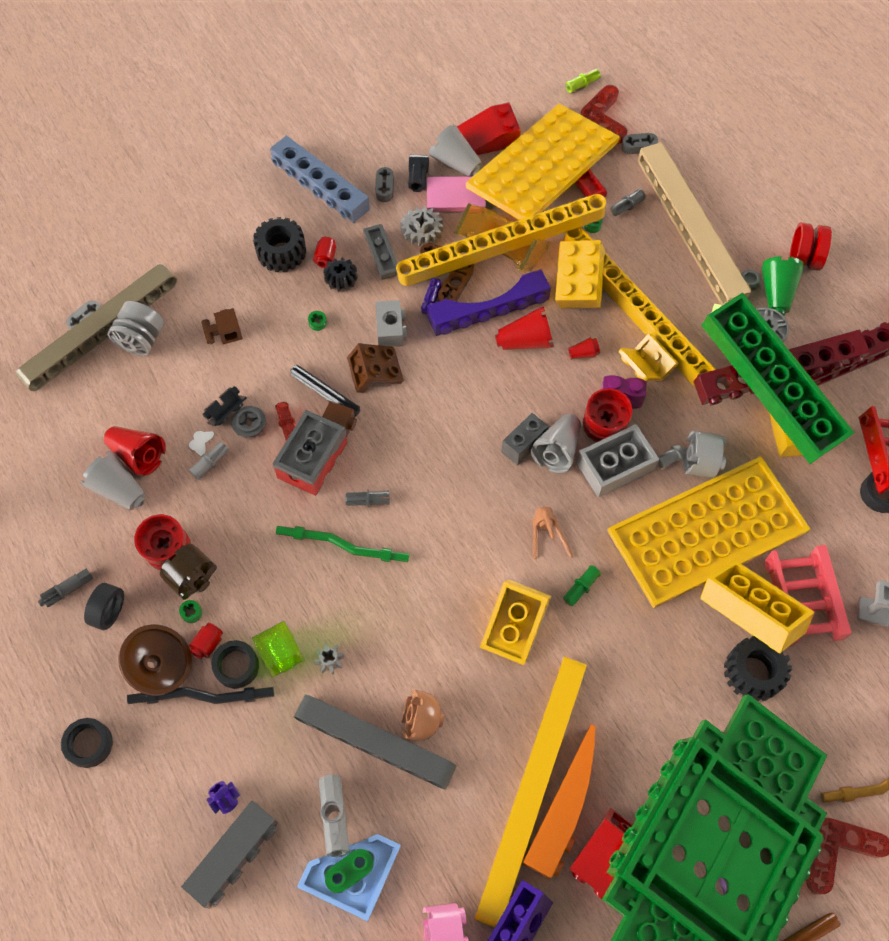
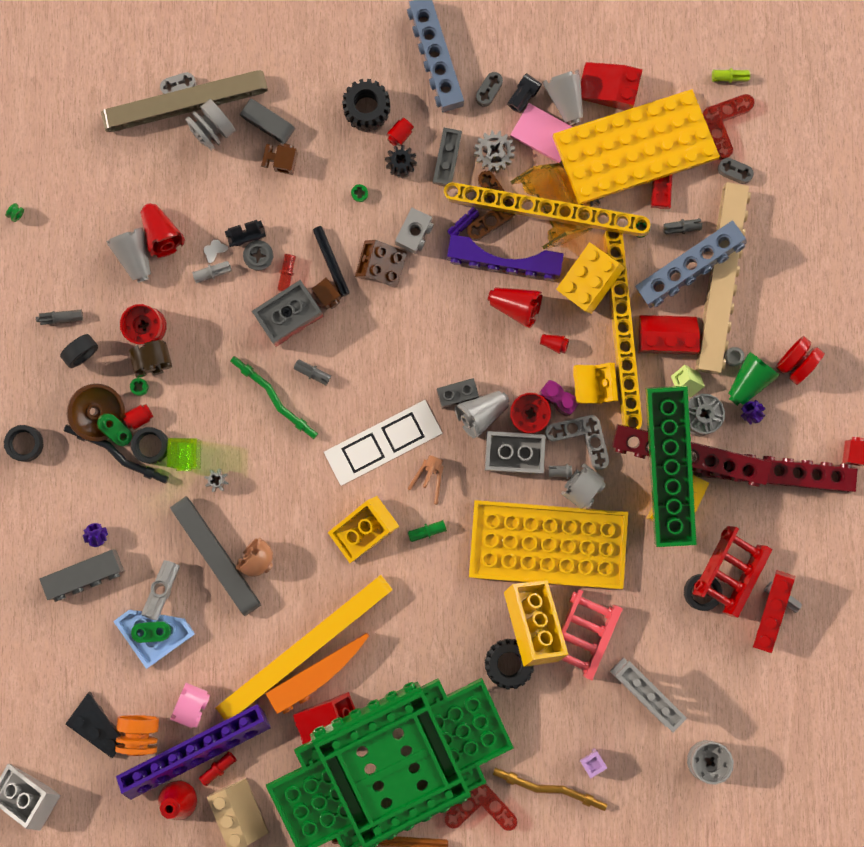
camera: 30 degrees right, 20 degrees up
(187, 670) = (115, 430): none -> green plate
(191, 303) = (267, 121): none -> dark grey beam
(479, 529) = (382, 442): none -> white sticker
(665, 409) = (583, 430): none -> light grey beam
(676, 177) = (729, 232): none -> sand blue brick
(683, 291) = (668, 335): none -> red slope
(803, 311) = (753, 412): none -> dark purple gear

